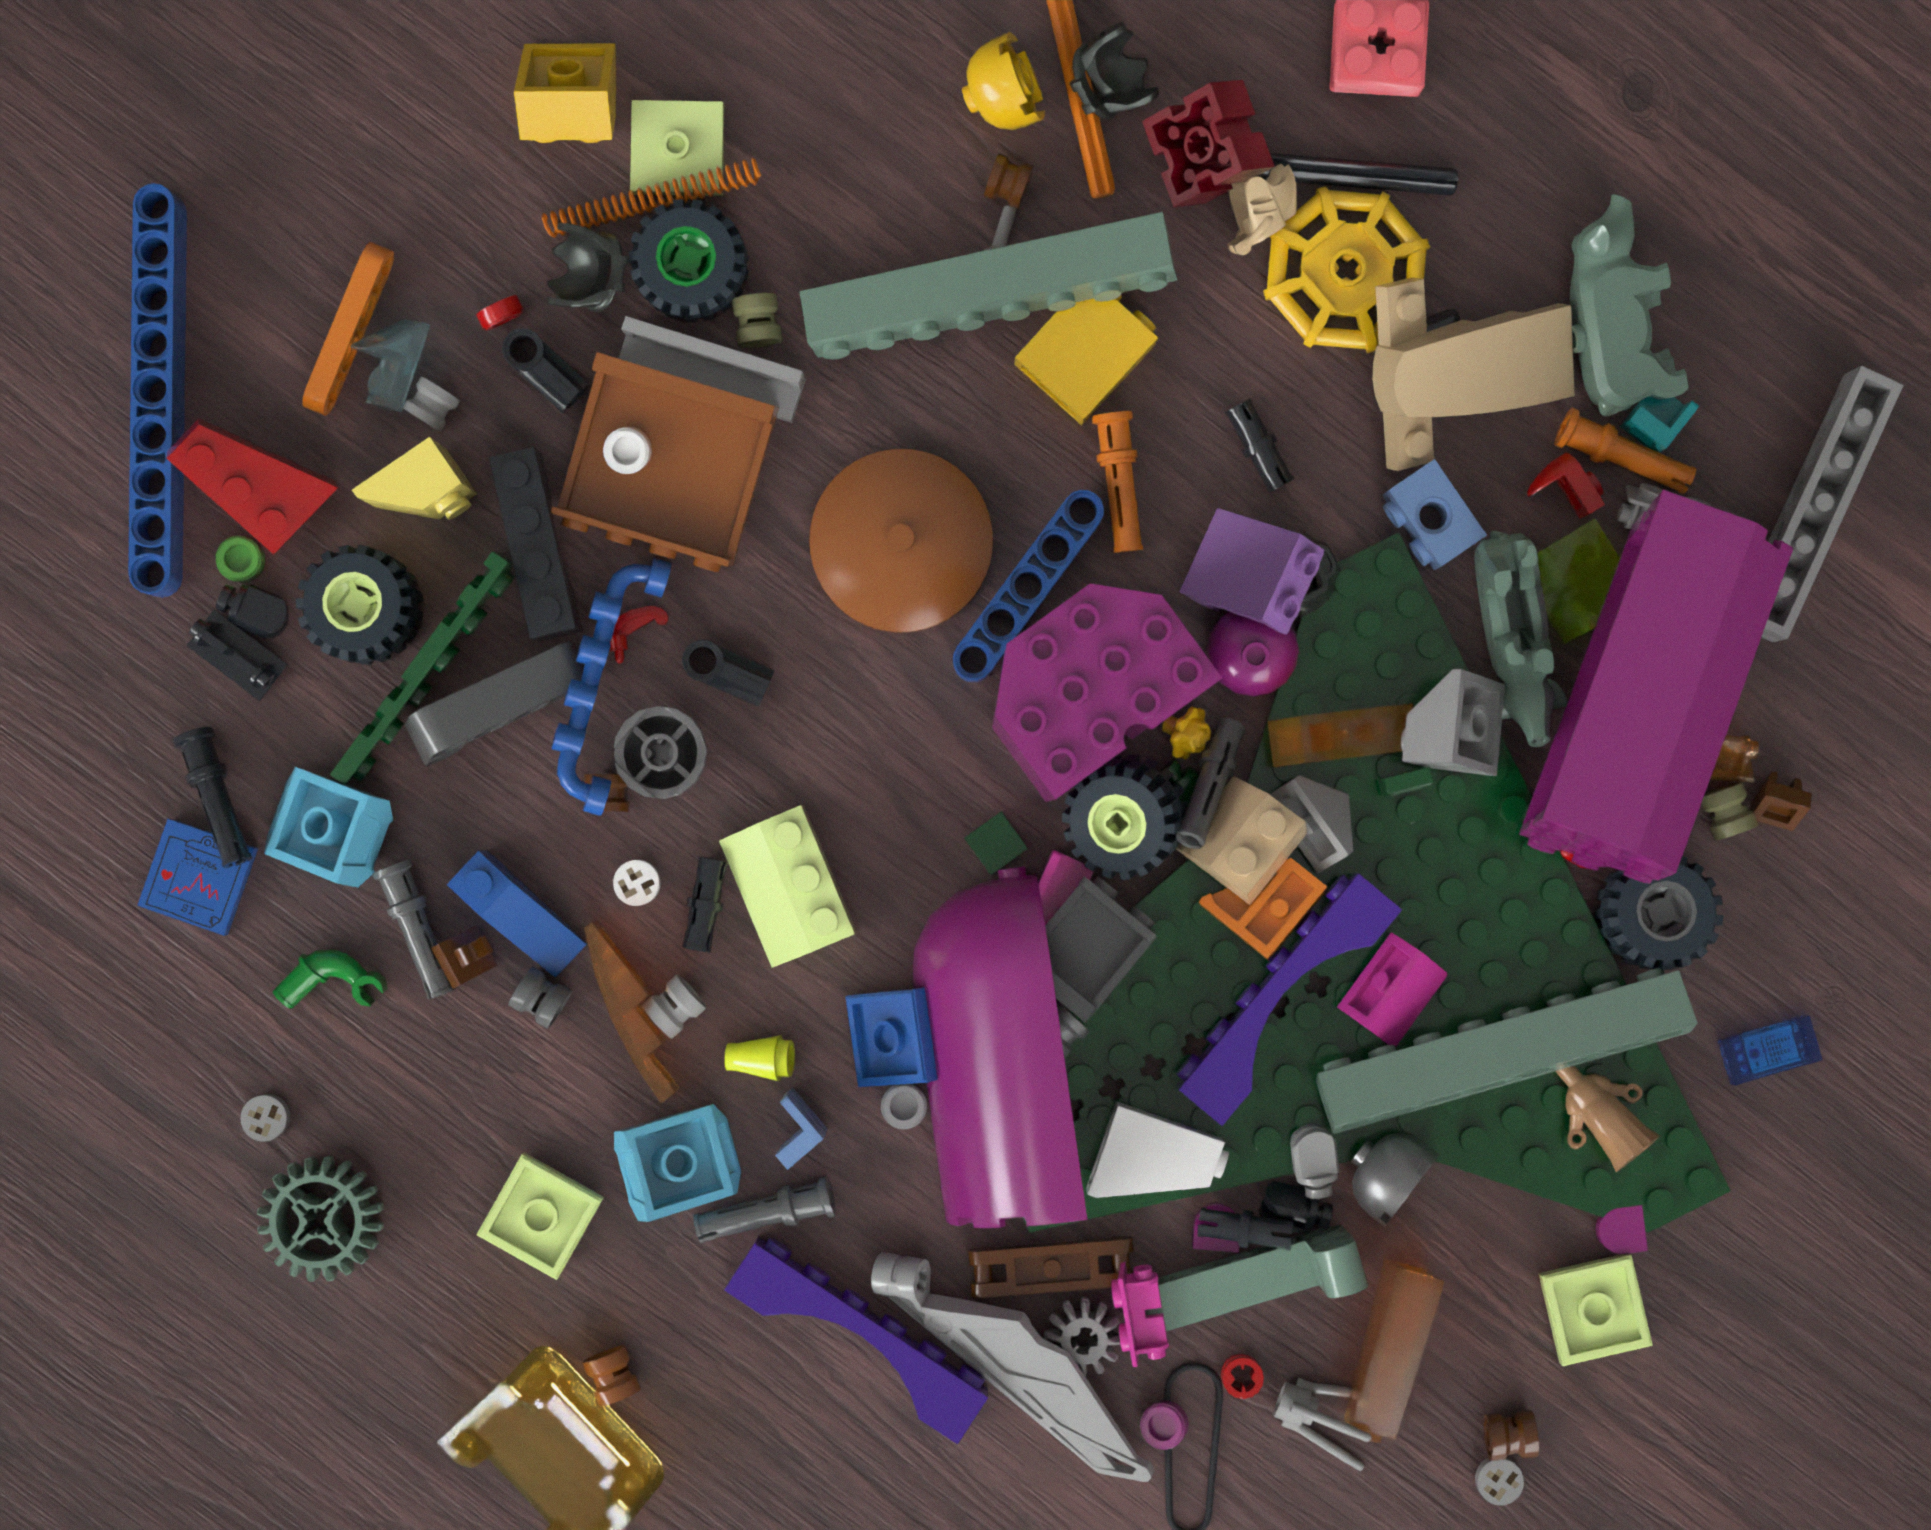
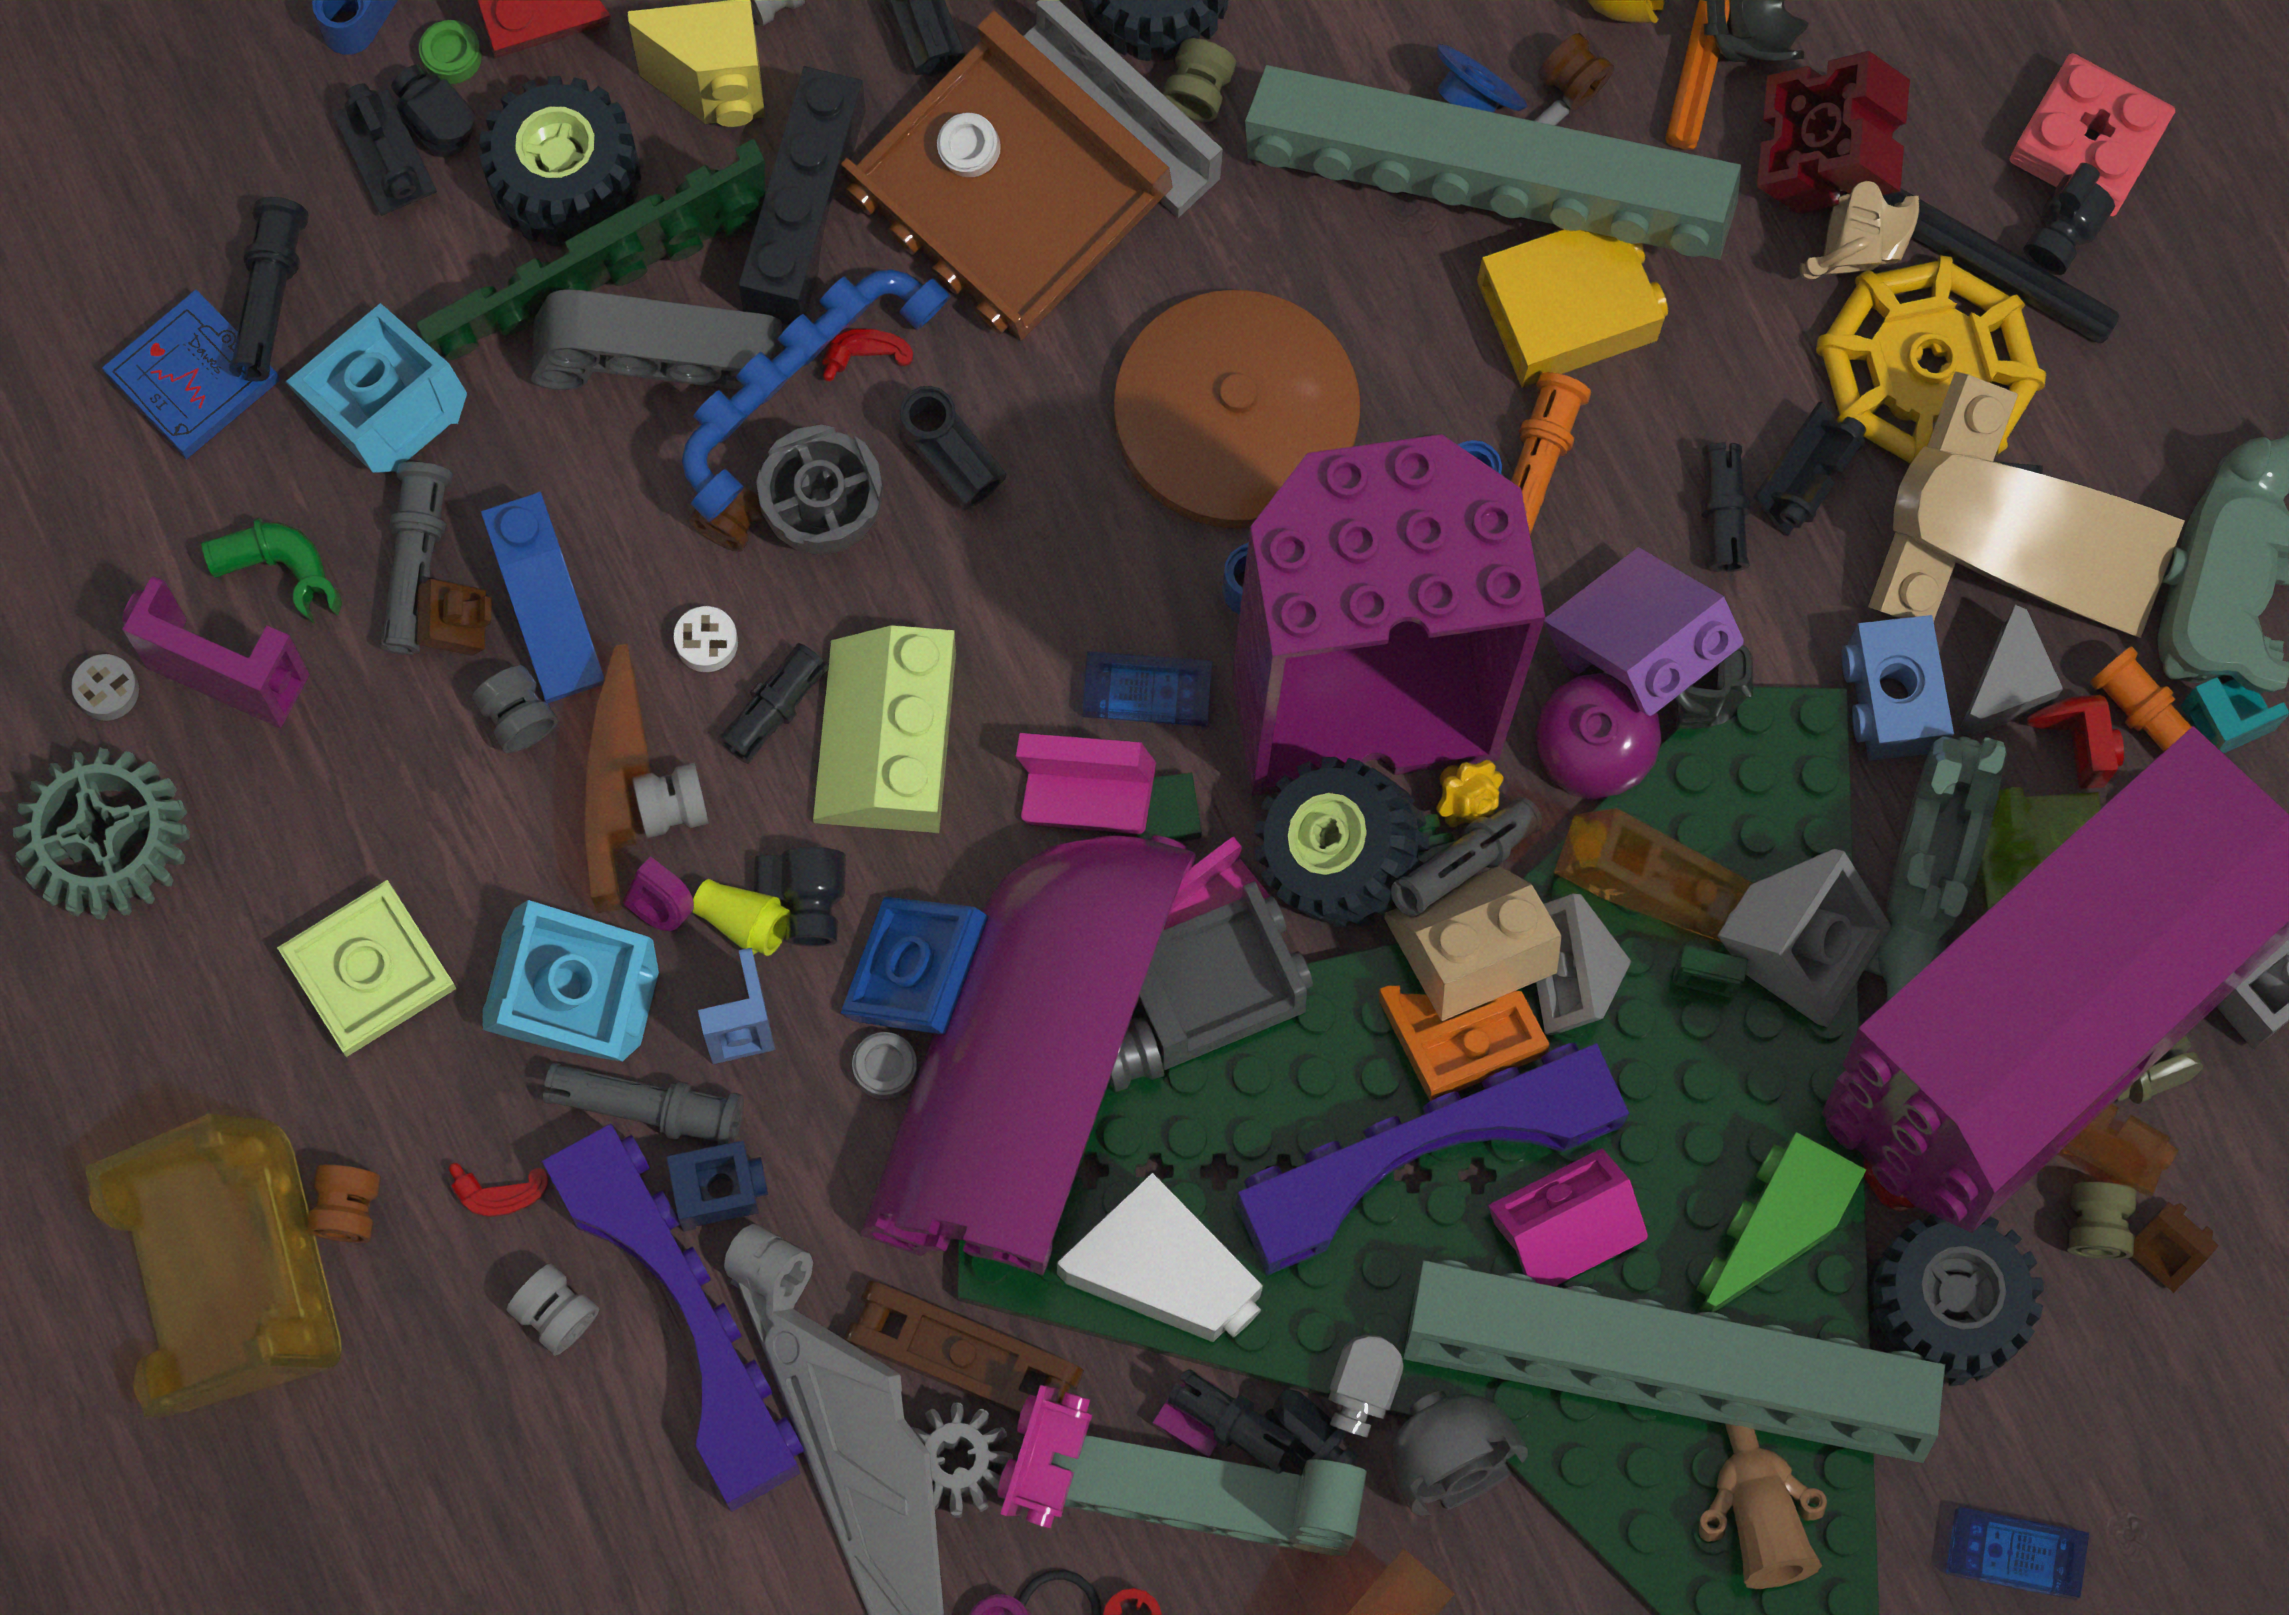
camera: 20 degrees right, 15 degrees down
(371, 1071) = (257, 685): none -> magenta panel
(703, 1074) = (659, 897): none -> magenta tile
(705, 1318) = (500, 1199): none -> red piece
(790, 1377) = (553, 1309): none -> light grey wheel
(794, 1015) = (812, 883): none -> black piece
(830, 1256) = (696, 1171): none -> dark blue brick
(938, 858) = (1086, 783): none -> dark pink panel
(941, 766) = (1147, 688): none -> clear blue tile
(947, 227) = (1474, 84): none -> blue piece
(1299, 409) = (1803, 471): none -> black hinge
(1393, 114) = (2071, 218): none -> black piece
(1503, 469) = (2015, 679): none -> light grey slope
(1534, 914) = (1795, 1212): none -> bright green slope

